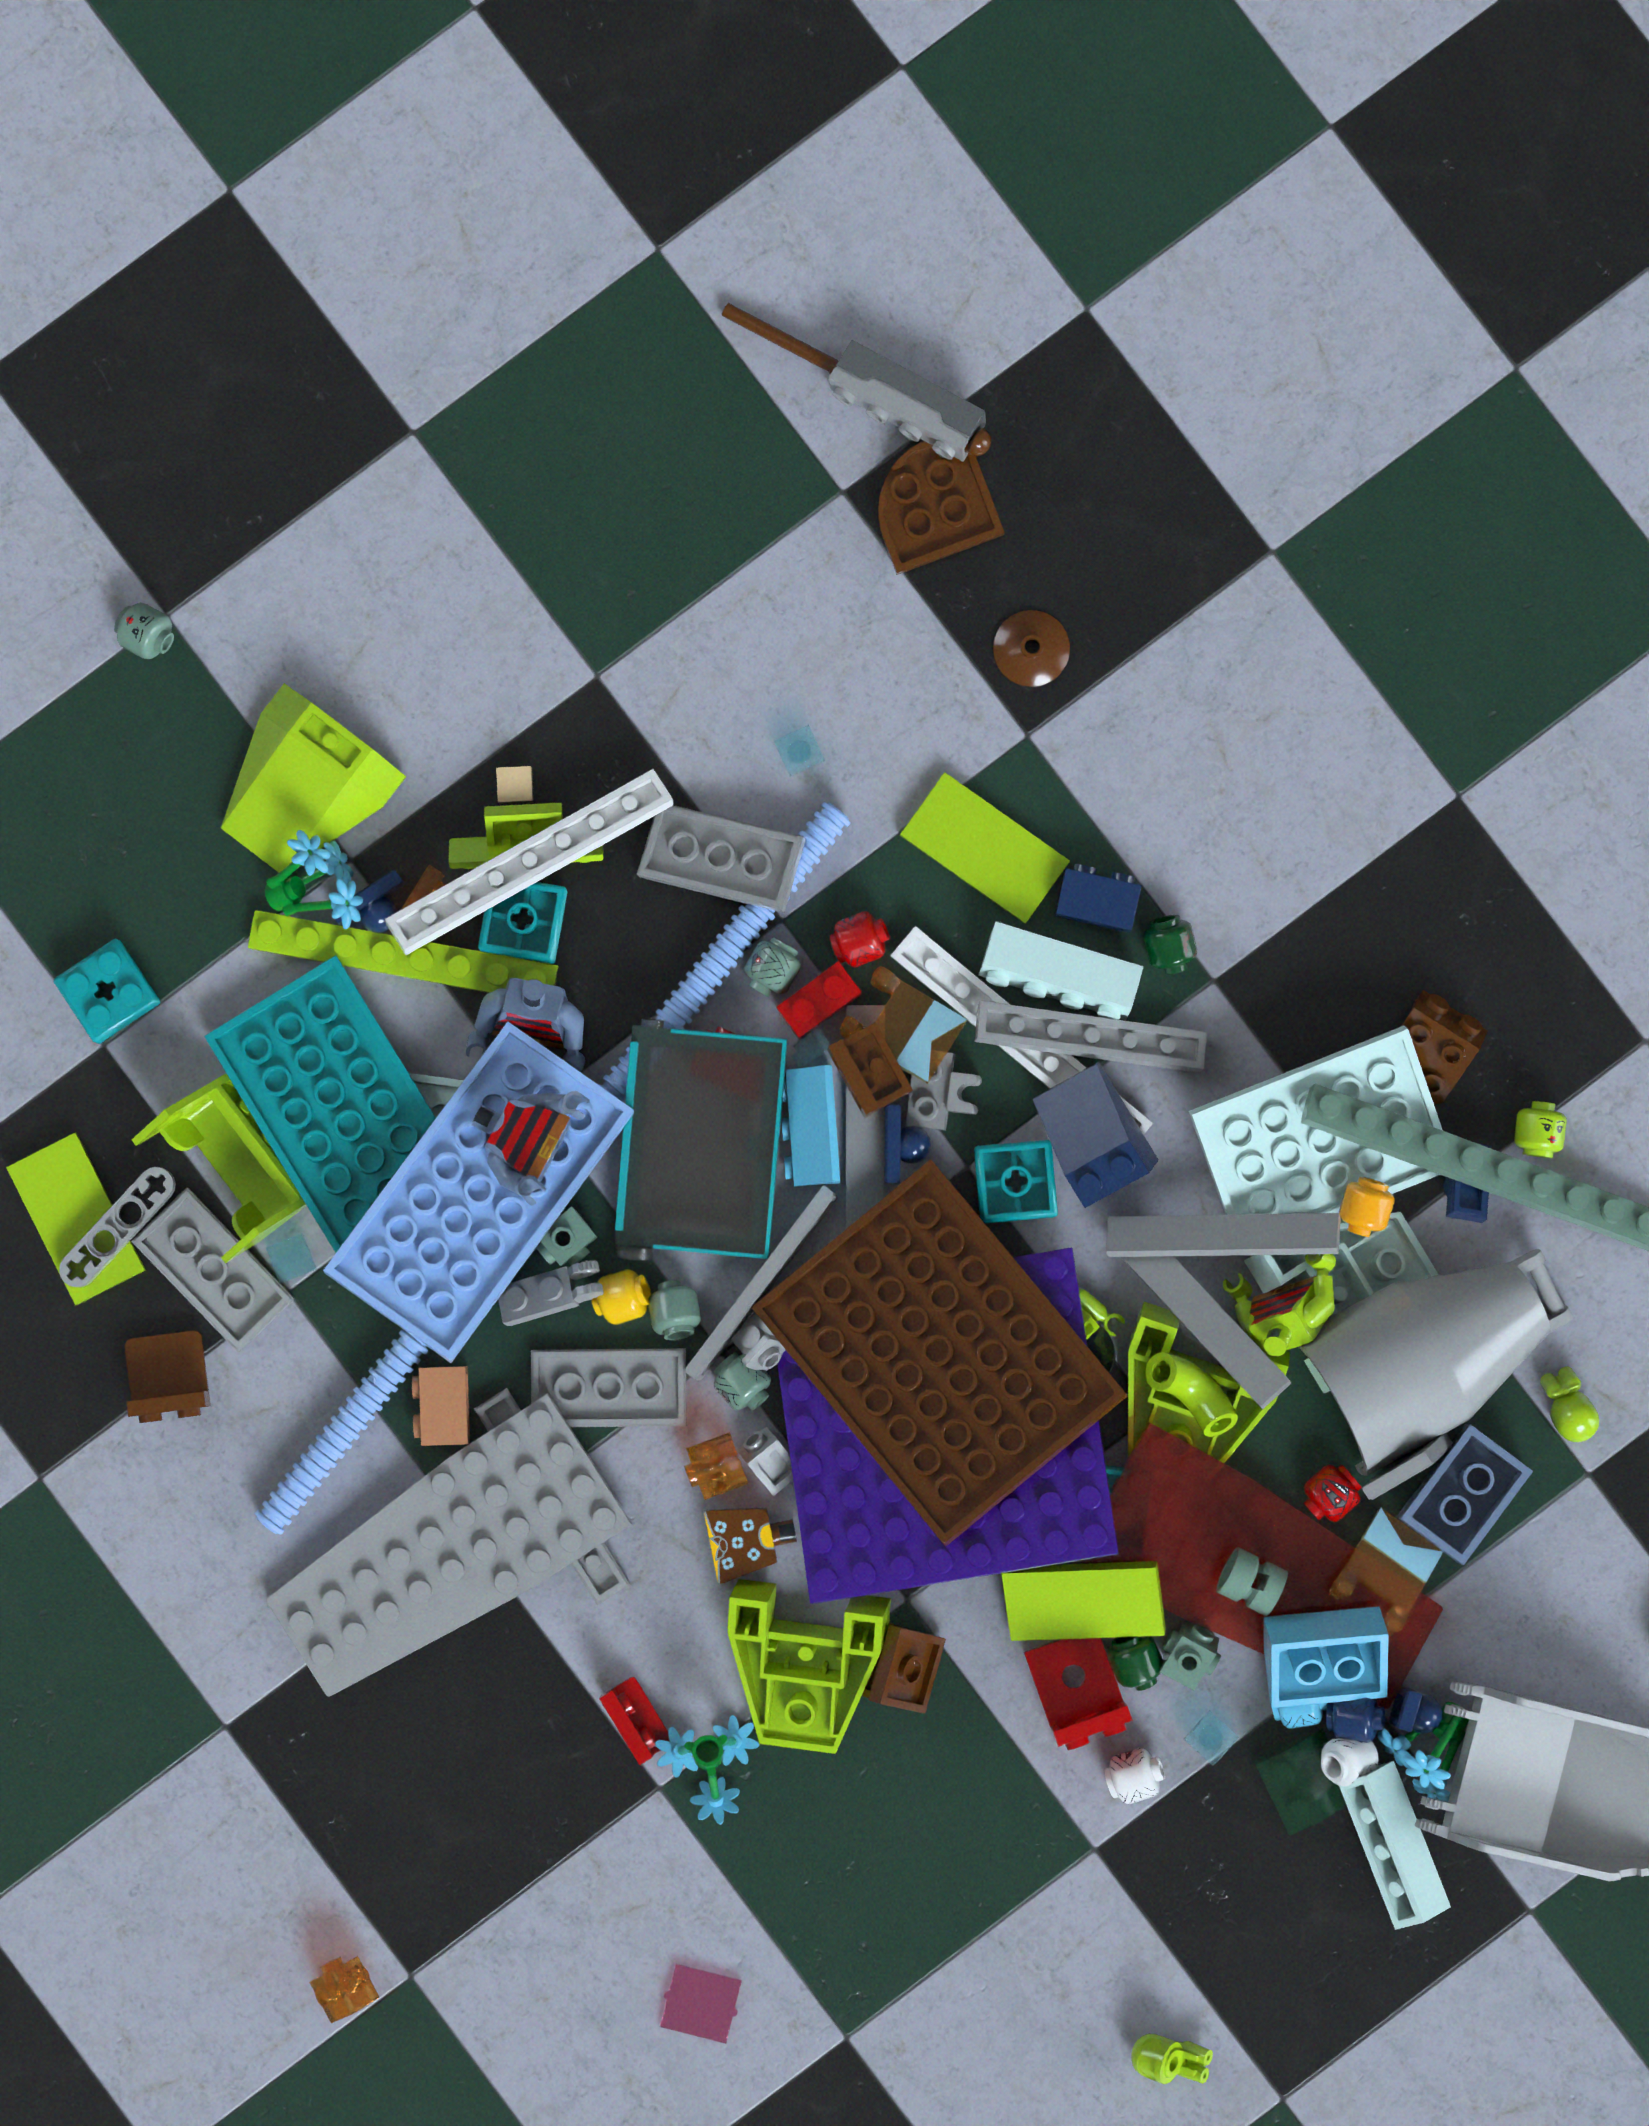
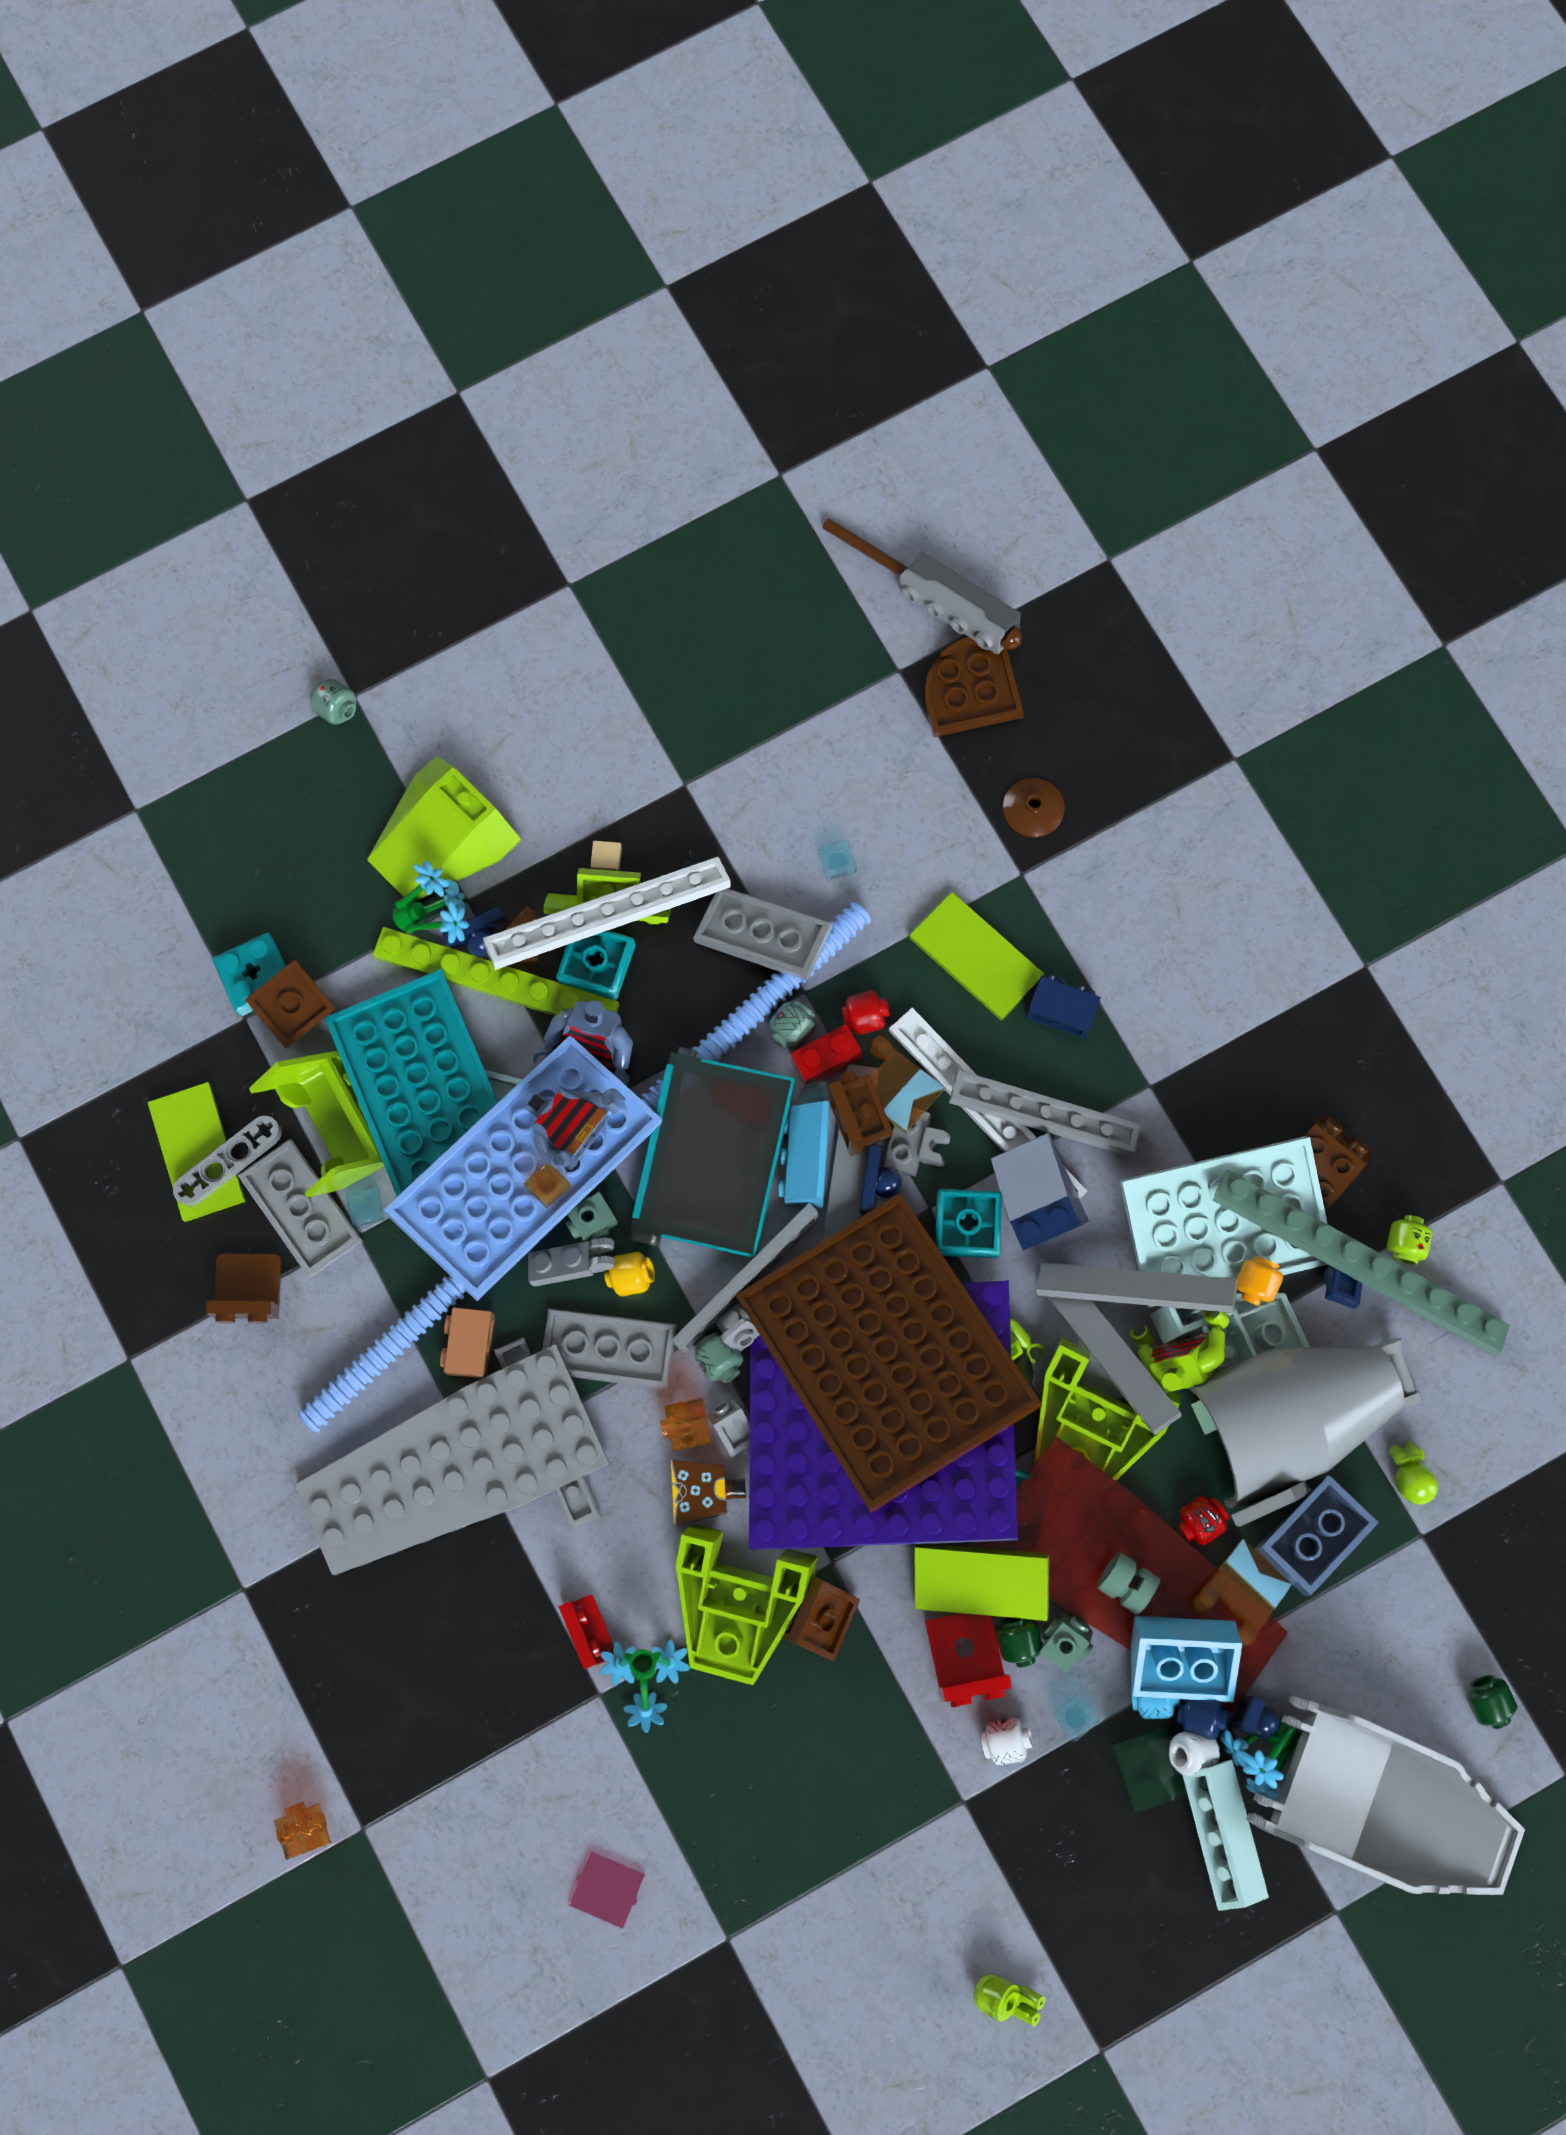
camera: 10 degrees right, 10 degrees down
(161, 1027) = (290, 1004): none -> reddish brown bracket
(511, 1214) = (547, 1185): none -> clear orange tile
(674, 1310) = (671, 1291): sand green head -> none
(1060, 972) = (1026, 1058): light aqua brick -> none
(1170, 944) = (1118, 1049): dark green head -> none
(1194, 1389) = (1097, 1413): lime cylinder -> none

